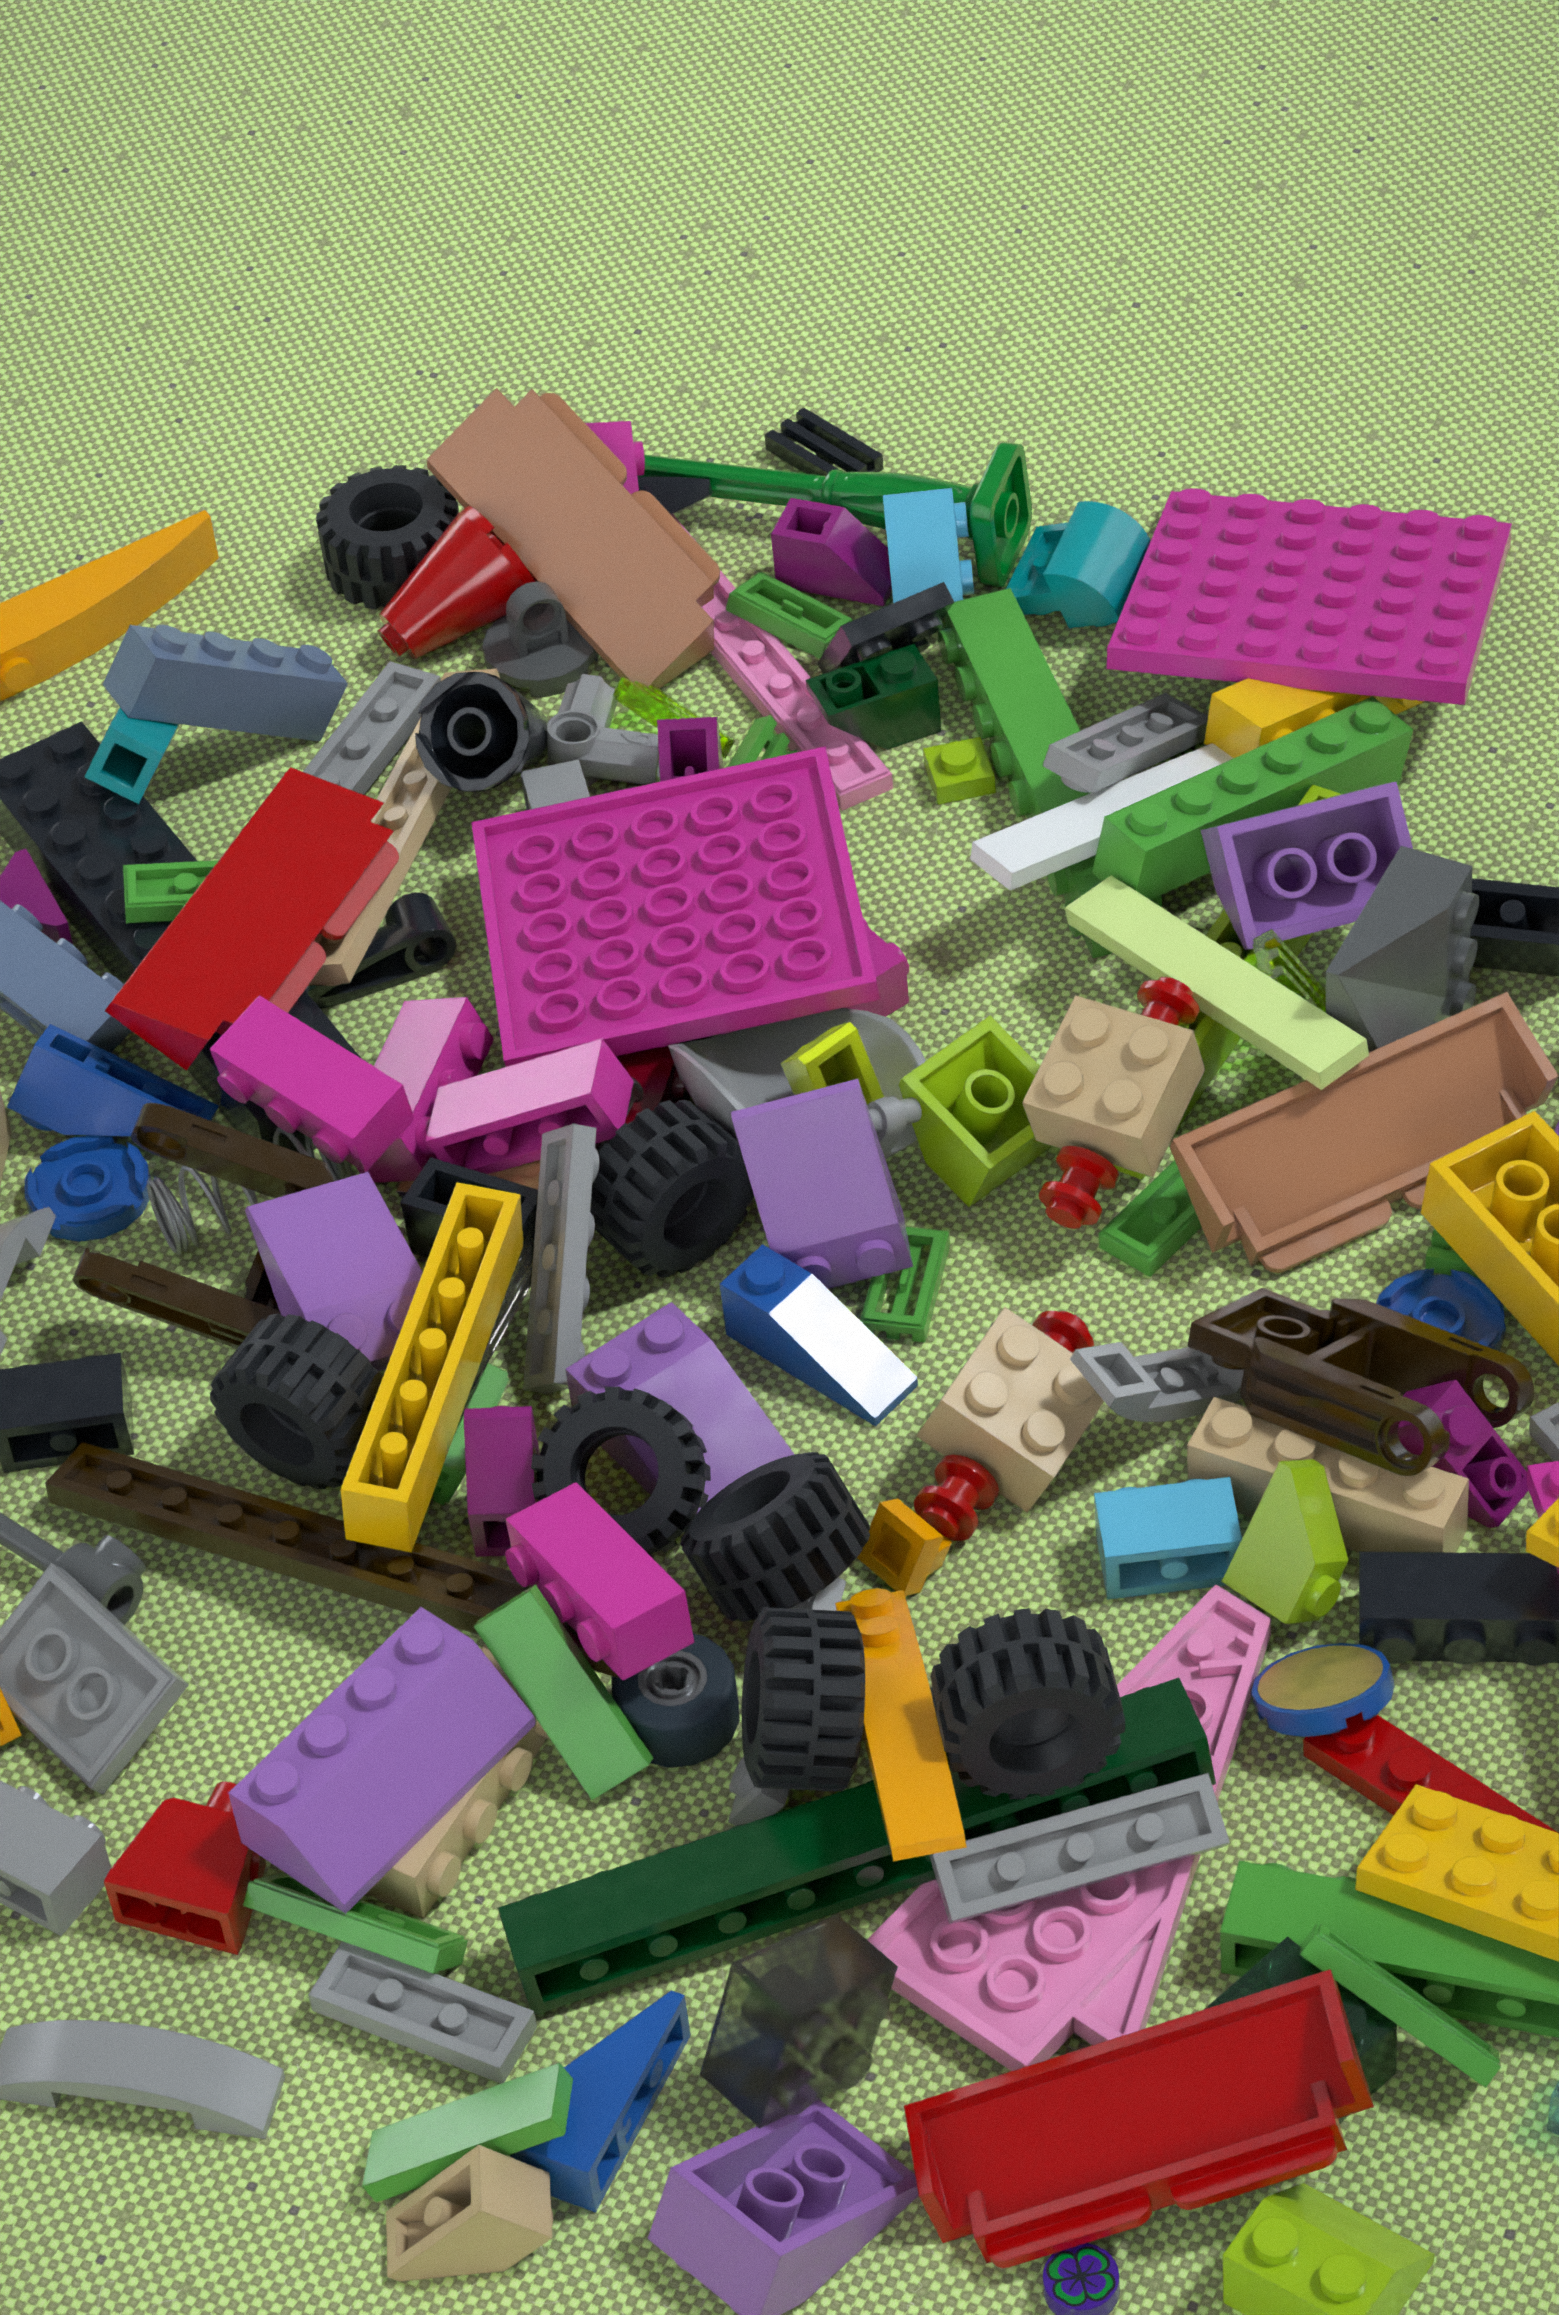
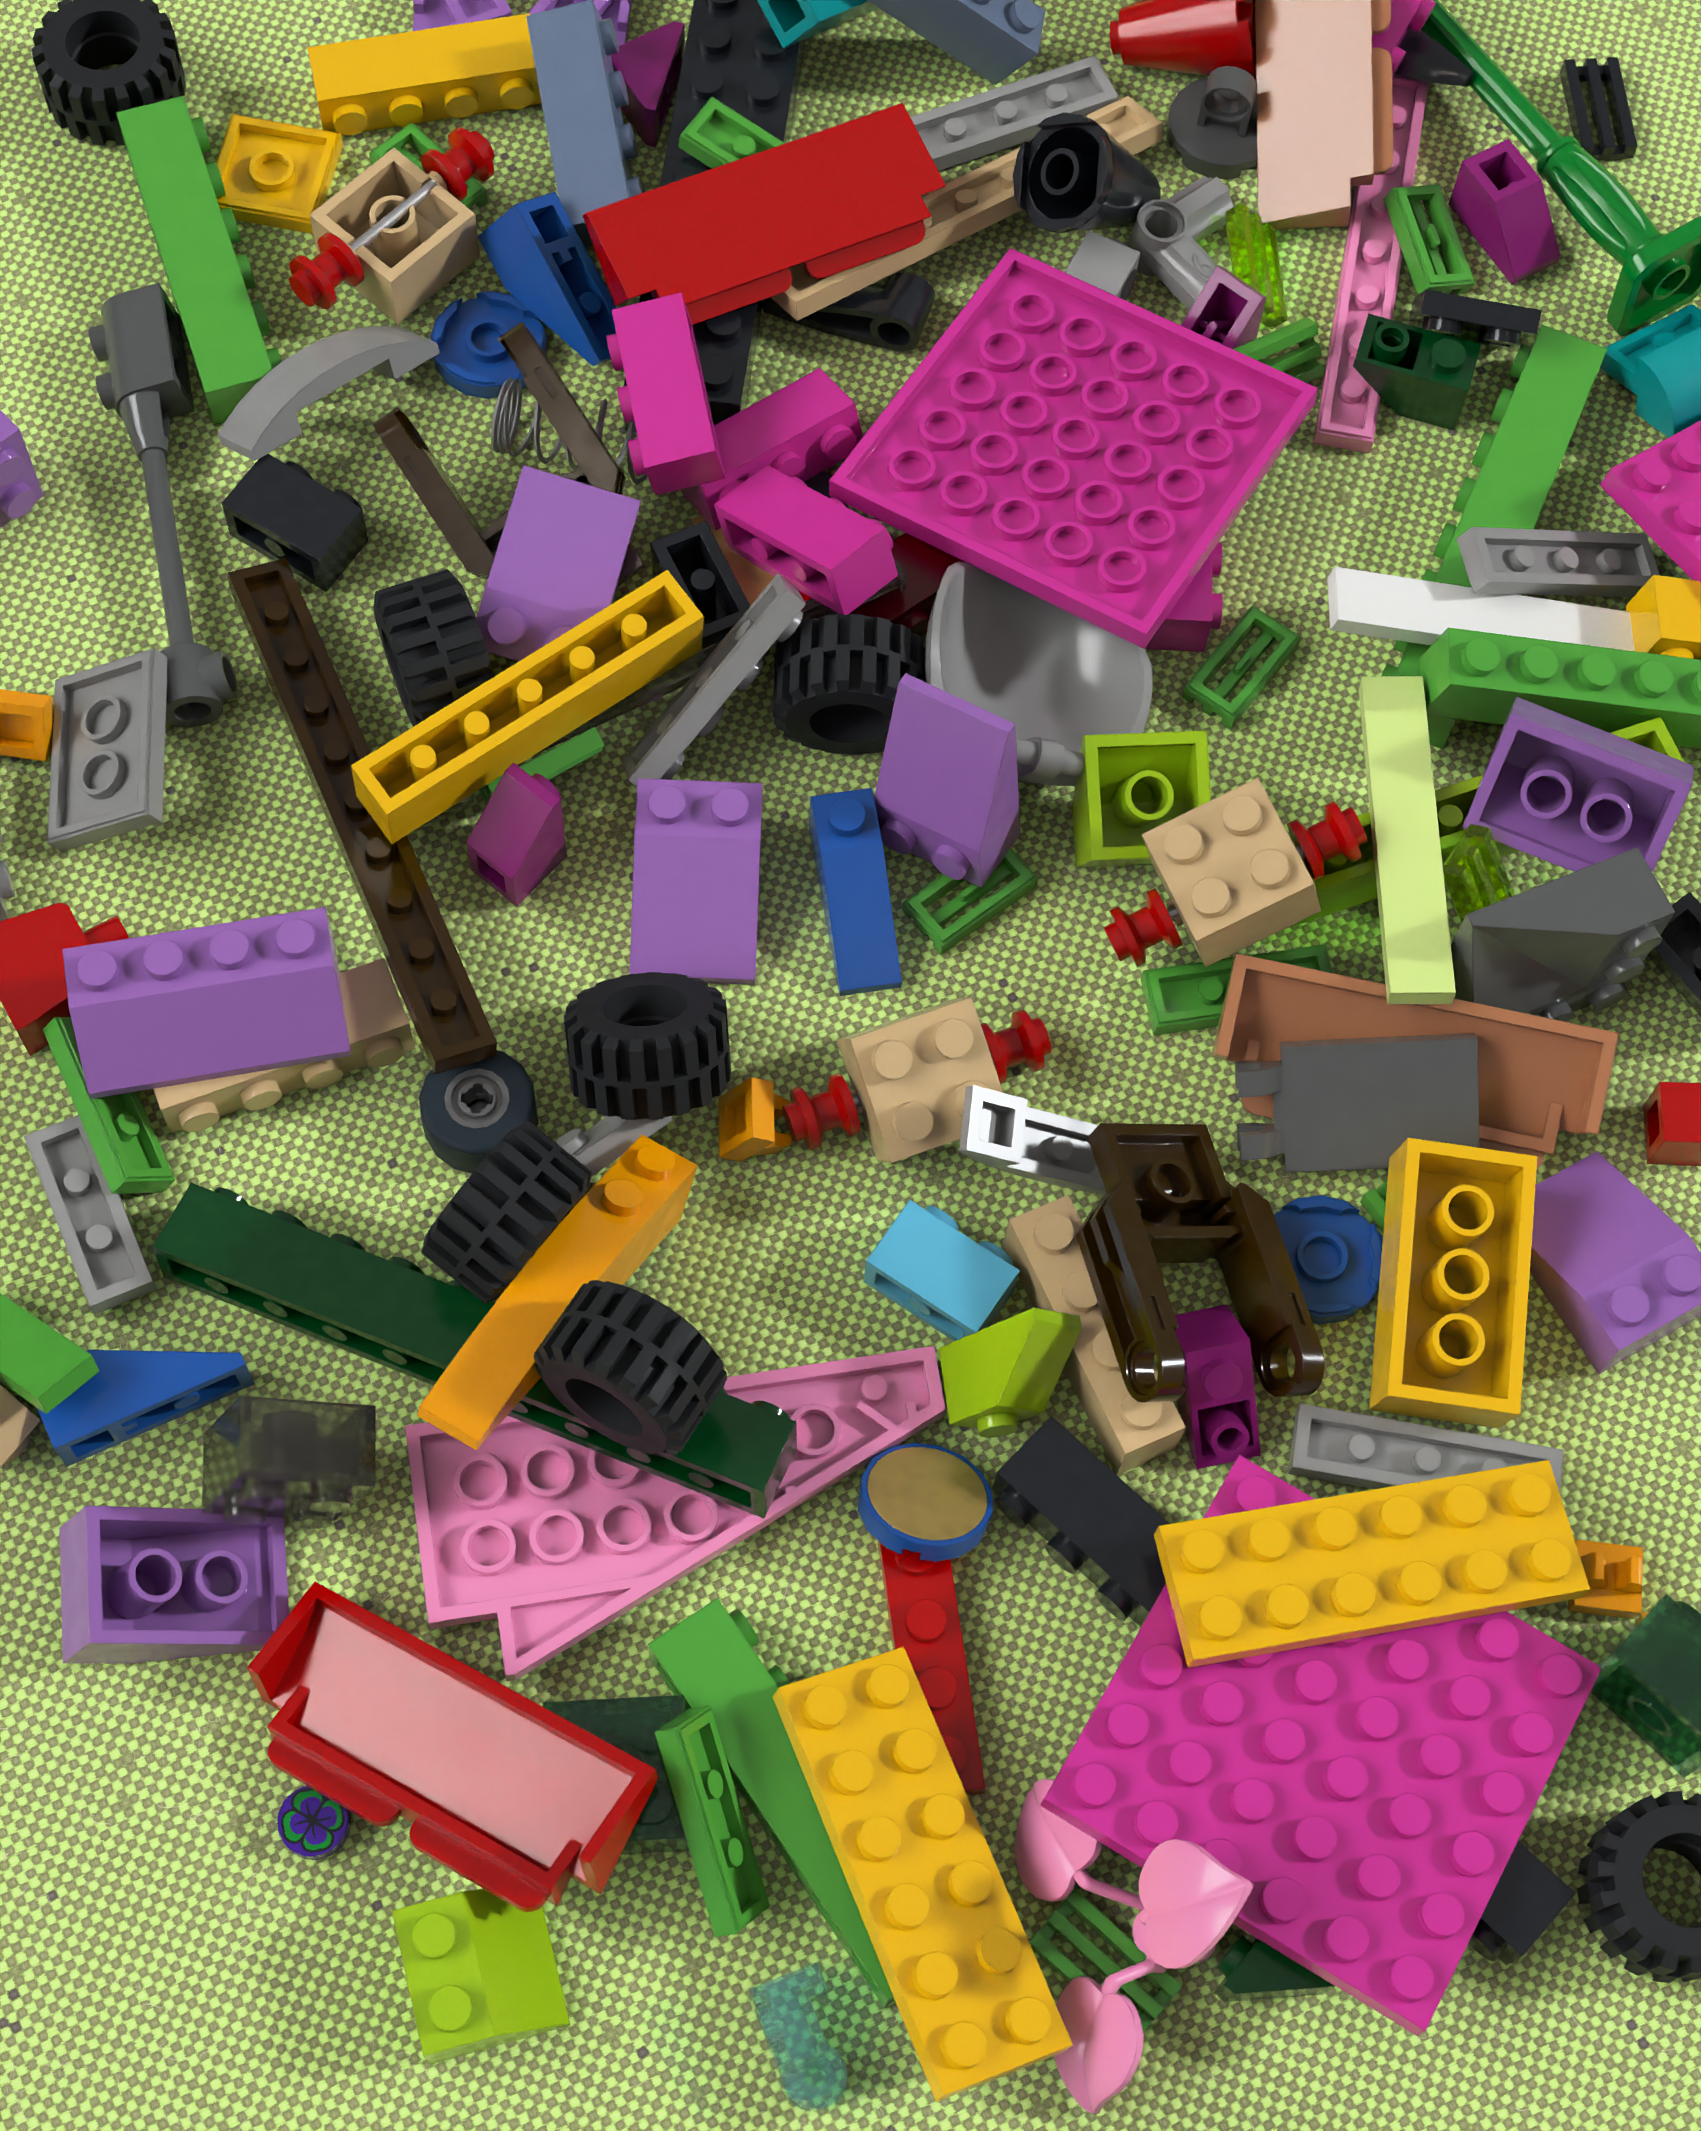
camera: 30 degrees right, 20 degrees up
(563, 1692) = (384, 1049): bright green tile -> none
(599, 1581) = (466, 987): dark pink brick -> none
(638, 1414) = (548, 891): black tyre -> none
(831, 1060) = (1053, 689): neon yellow slope -> none
(924, 543) = (1572, 266): medium azure brick -> none
(953, 1022) = (1215, 700): none -> bright green tile
(959, 770) = (1429, 477): lime plate -> none
(1080, 1848) = (616, 1490): light grey plate -> none
(1358, 1186) = (1361, 1099): none -> dark grey tile

